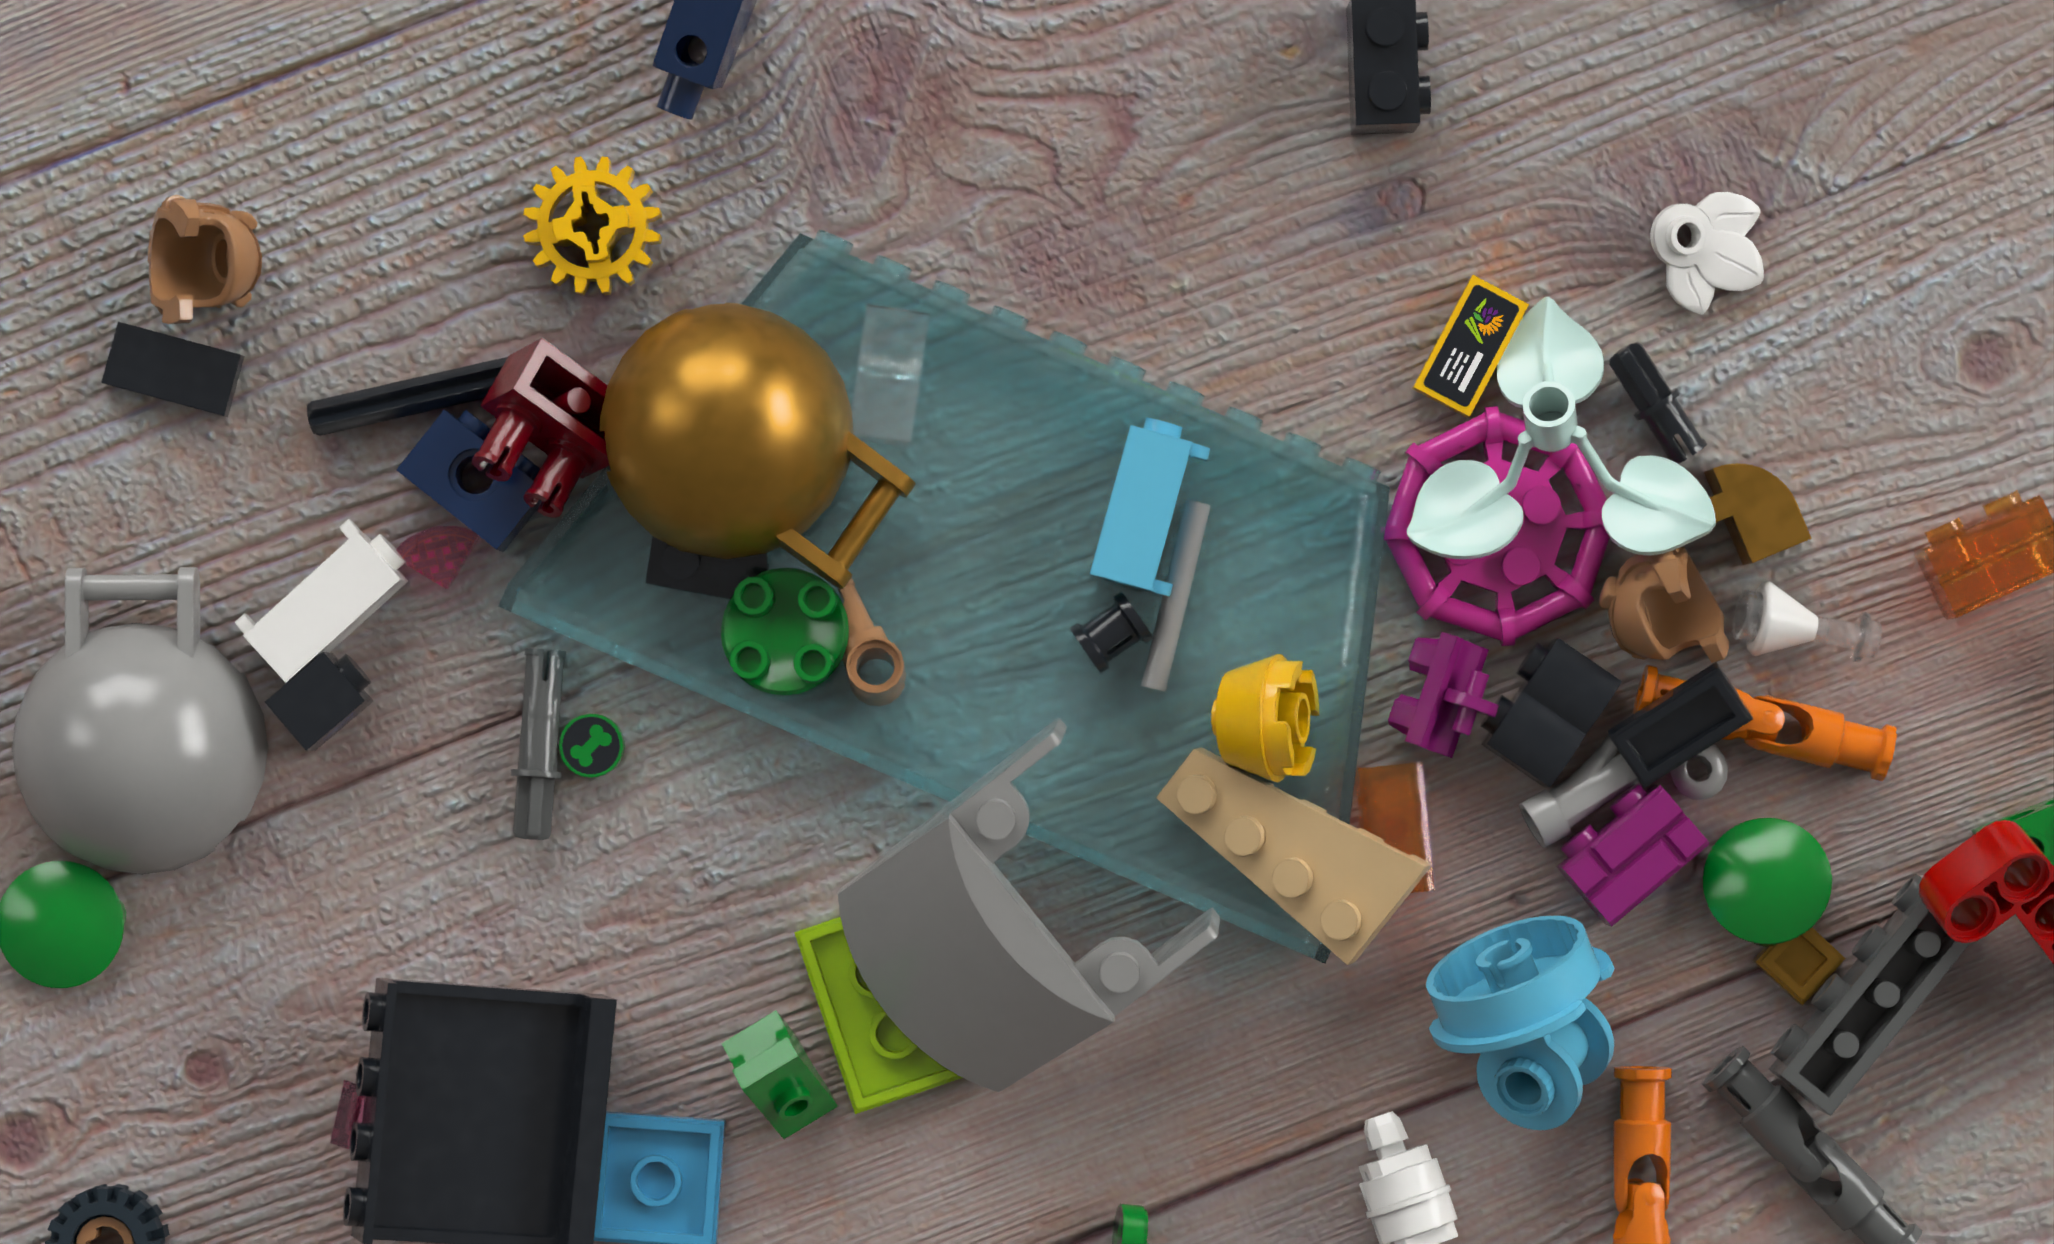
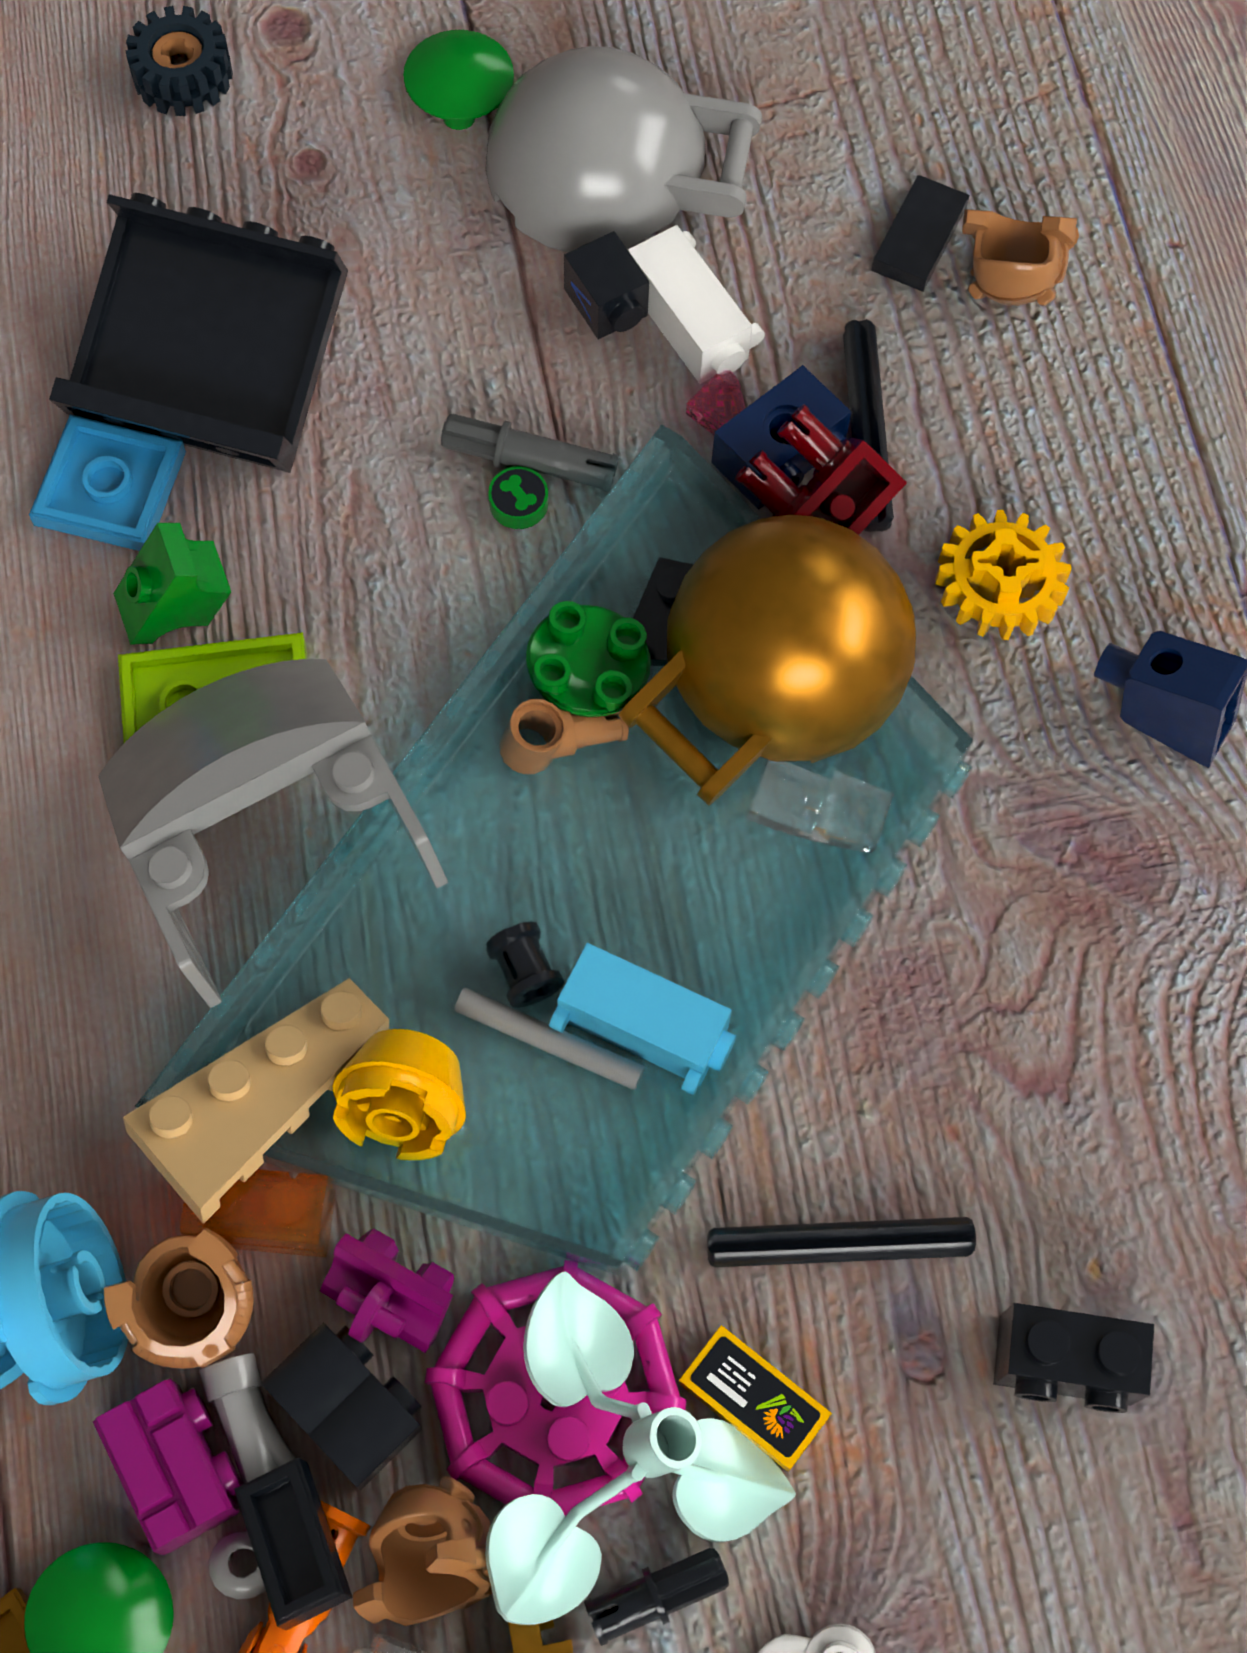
camera: 100 degrees right, 20 degrees down
(1314, 289) = (841, 1242): none -> black axle
(1493, 871) = (184, 1302): none -> medium nougat helmet

